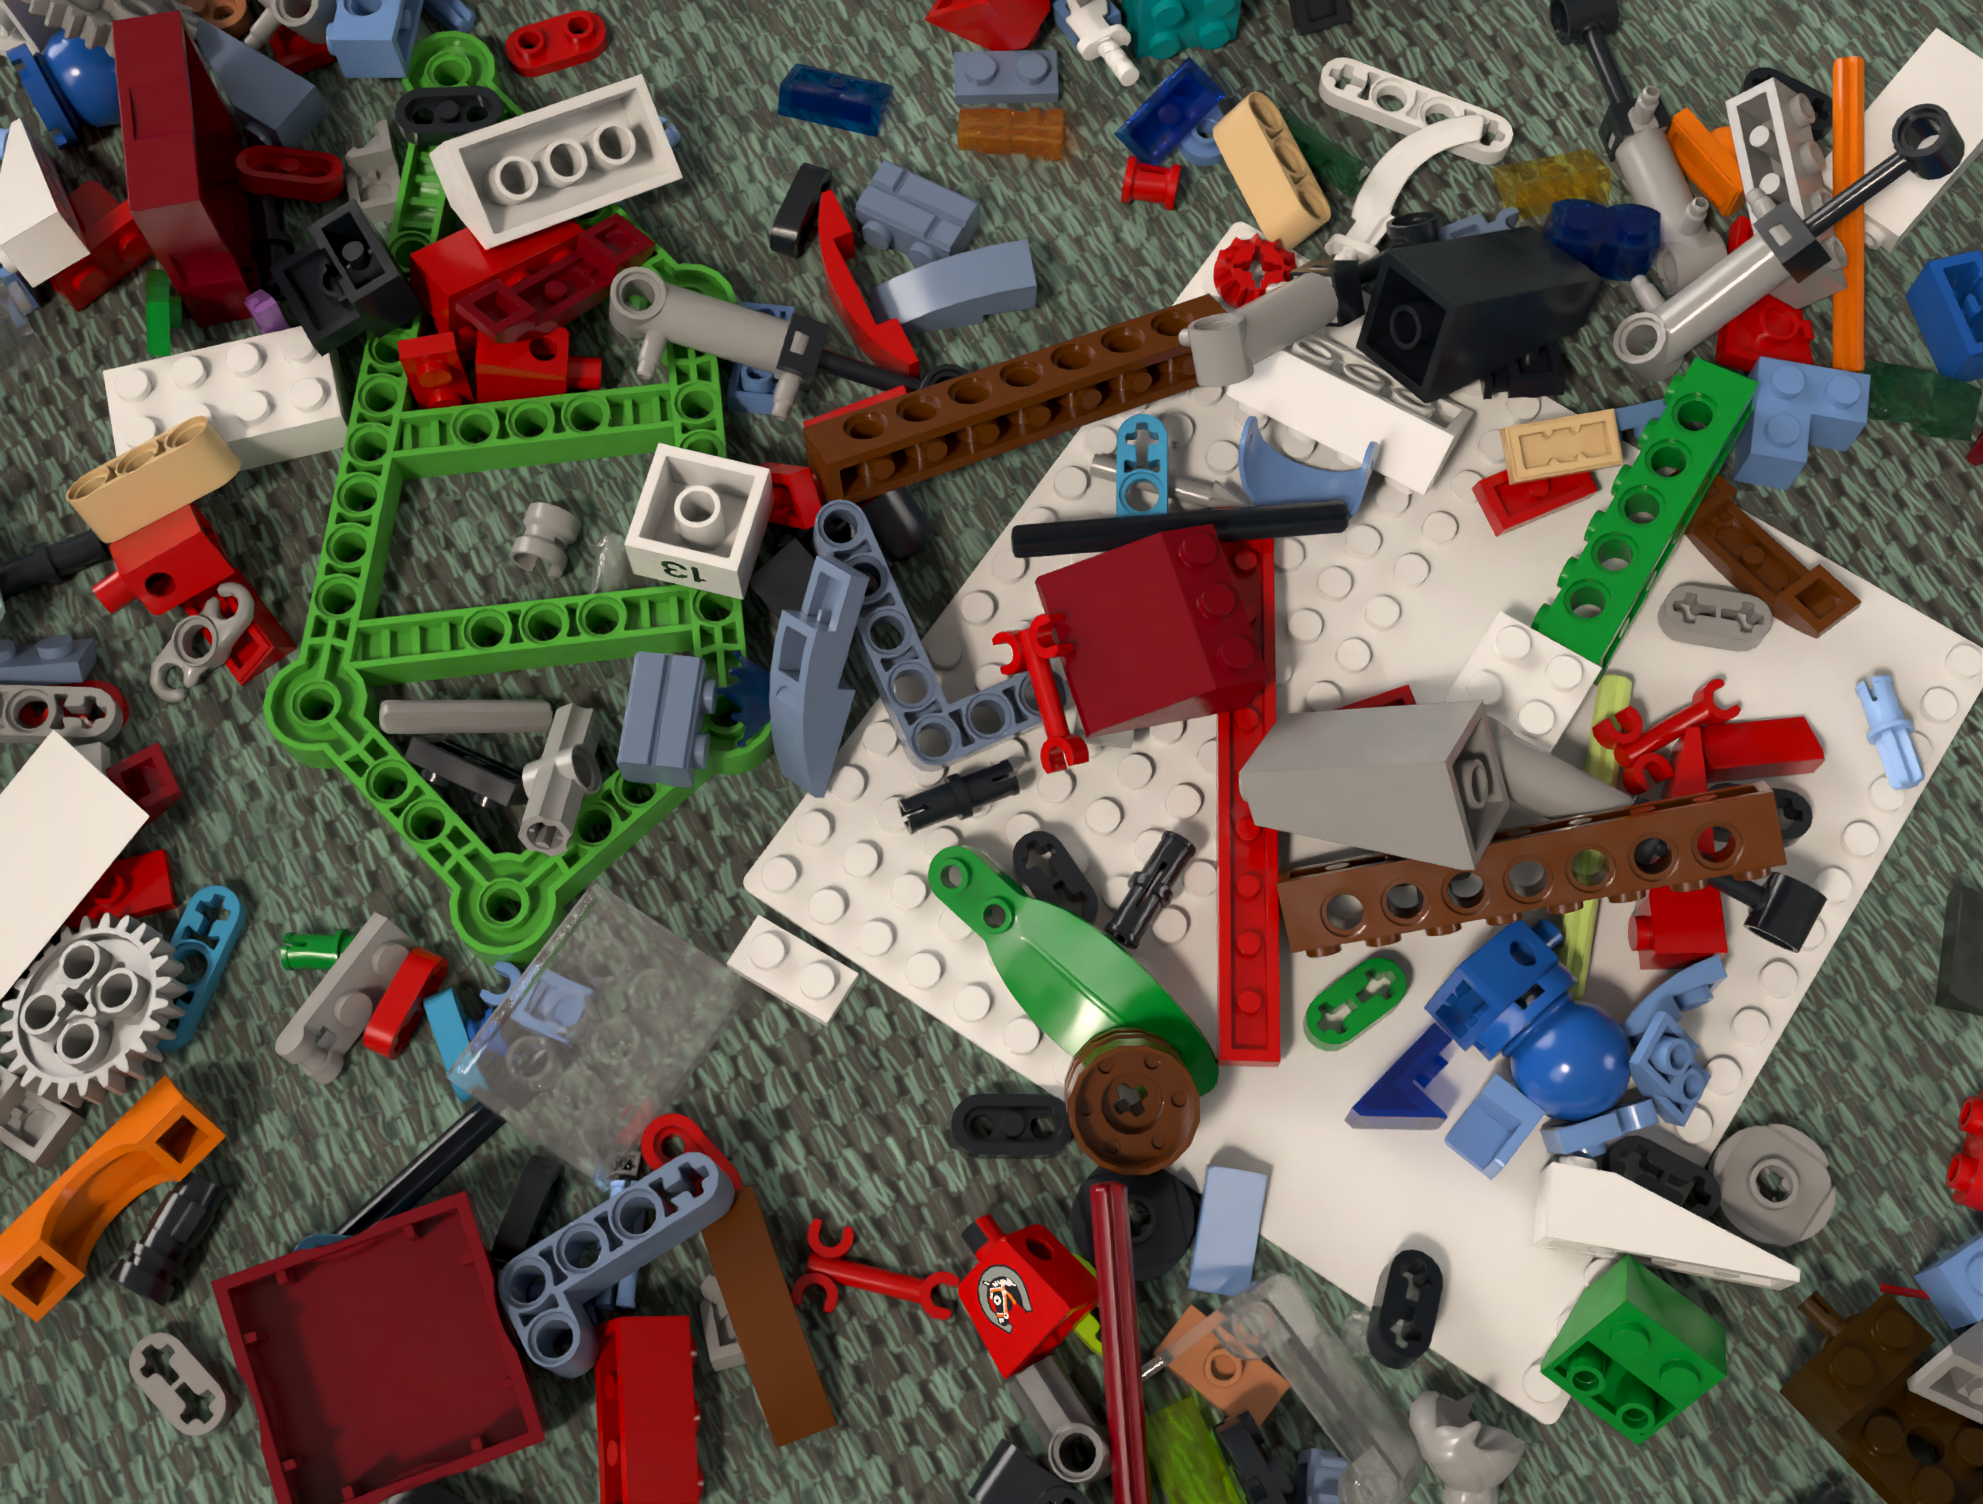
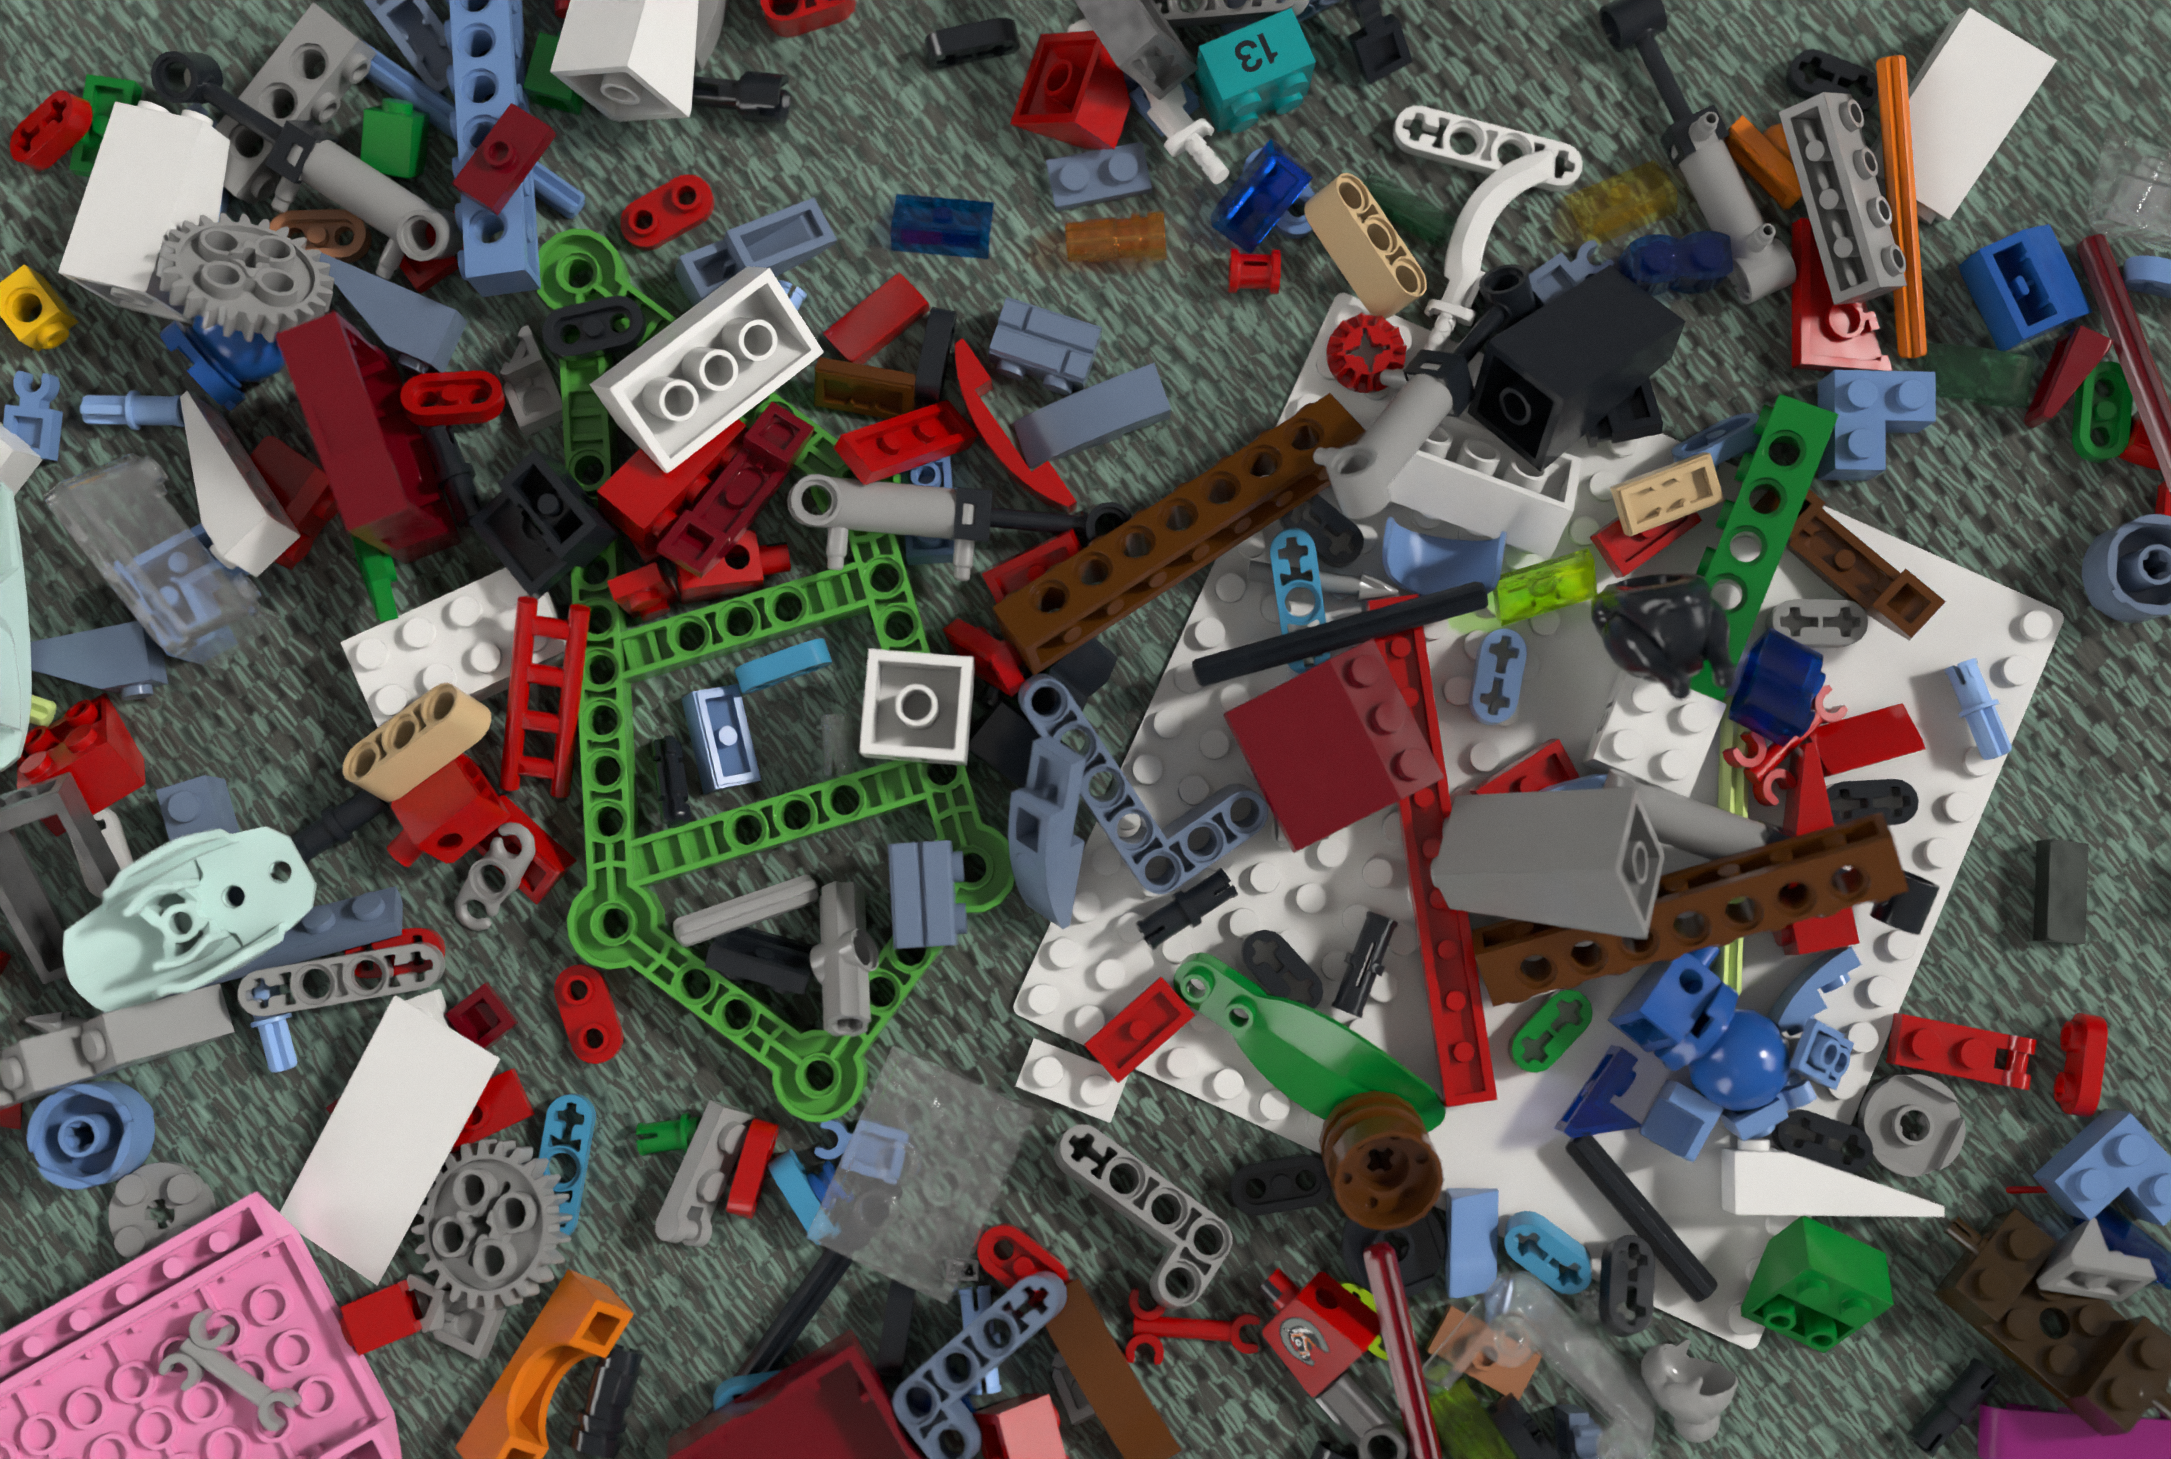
camera: 10 degrees left, 15 degrees up
(265, 312) = (473, 555): medium lavender tile -> none
(266, 804) = (591, 1012): none -> red plate
(333, 442) = (568, 678): none -> red bar
(418, 574) = (671, 782): none -> black axle
(482, 541) = (720, 738): none -> medium blue slope
(546, 536) = (774, 726): light grey wheel -> none
(570, 480) = (783, 666): none -> dark azure beam
(674, 79) = (771, 242): none -> sand blue slope
(718, 230) = (863, 388): none -> reddish brown plate
(747, 175) = (877, 320): none -> red slope
(747, 272) = (905, 442): none -> red plate
(750, 695) = (991, 855): clear blue piece -> none
(834, 1118) = (1136, 1207): none -> light grey beam
(879, 917) = (1139, 1029): none -> red plate
(1032, 653) = (1239, 781): red bar -> none
(1183, 428) = (1336, 524): none -> black beam
(1306, 1269) = (1551, 1248): none -> dark azure beam
(1338, 609) = (1509, 679): none -> light blue beam
(1414, 526) = (1545, 587): none -> clear neon green plate
(1434, 1235) = (1642, 1217): none -> black axle
(1536, 554) = (1665, 630): none -> black piece
(1664, 668) = (1778, 688): none -> clear blue brick
(1778, 251) = (1847, 274): piece -> none
(1837, 1111) = (1959, 1051): none -> red plate

